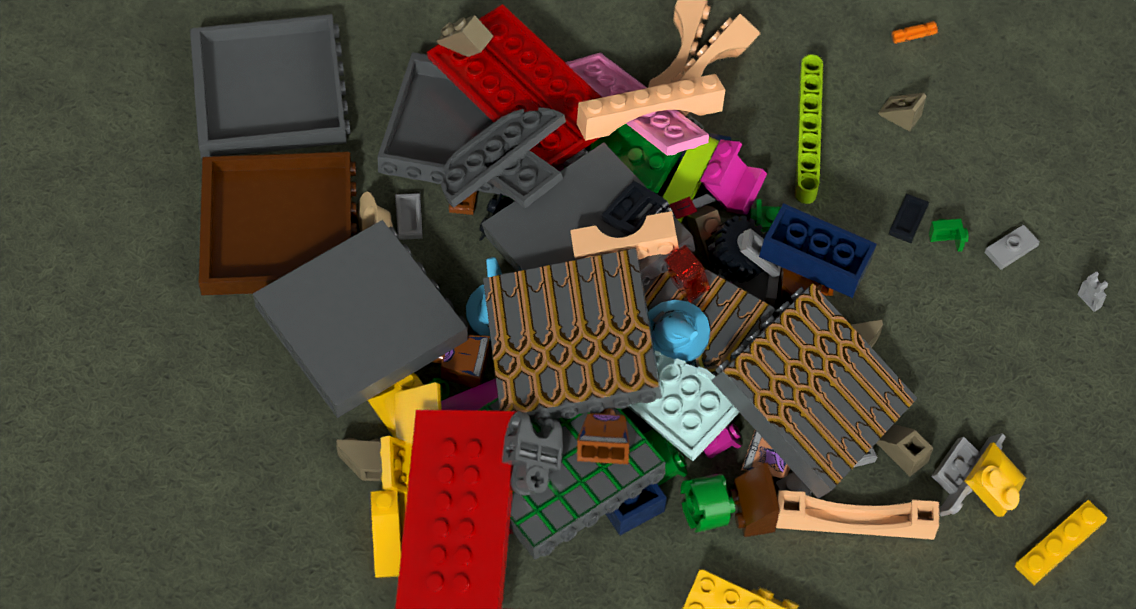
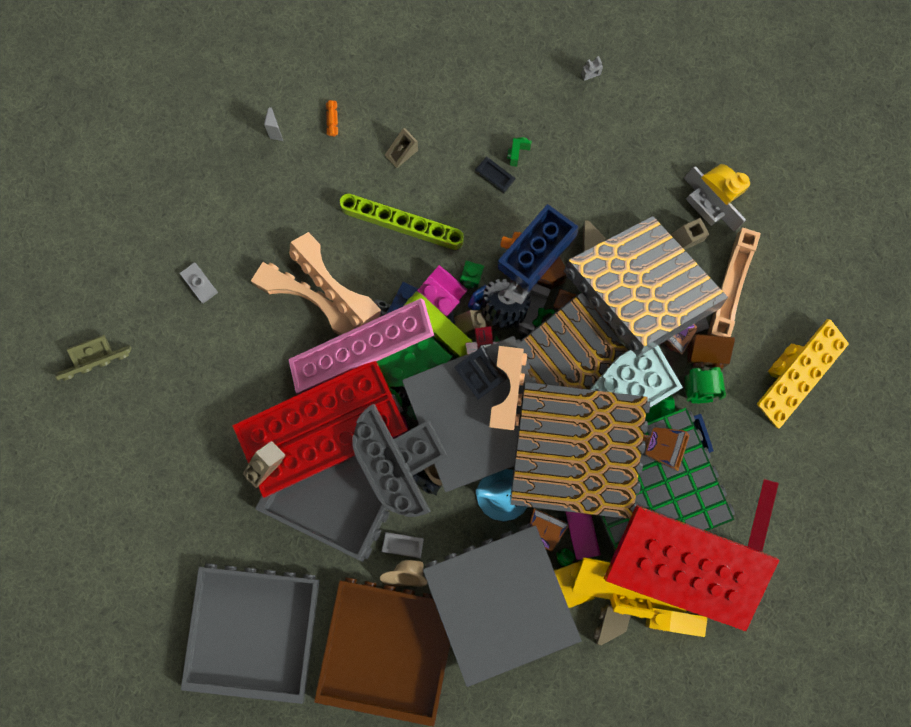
camera: 75 degrees left, 20 degrees up
(532, 453) = (671, 502): dark grey piece -> none
(606, 114) = (373, 309): light nougat arch -> none
(679, 330) = (576, 367): medium azure piece -> none
(687, 273) = (542, 349): clear red brick -> none
(1012, 247) = (537, 111): light grey plate -> none
(1061, 542) = (773, 157): yellow plate -> none

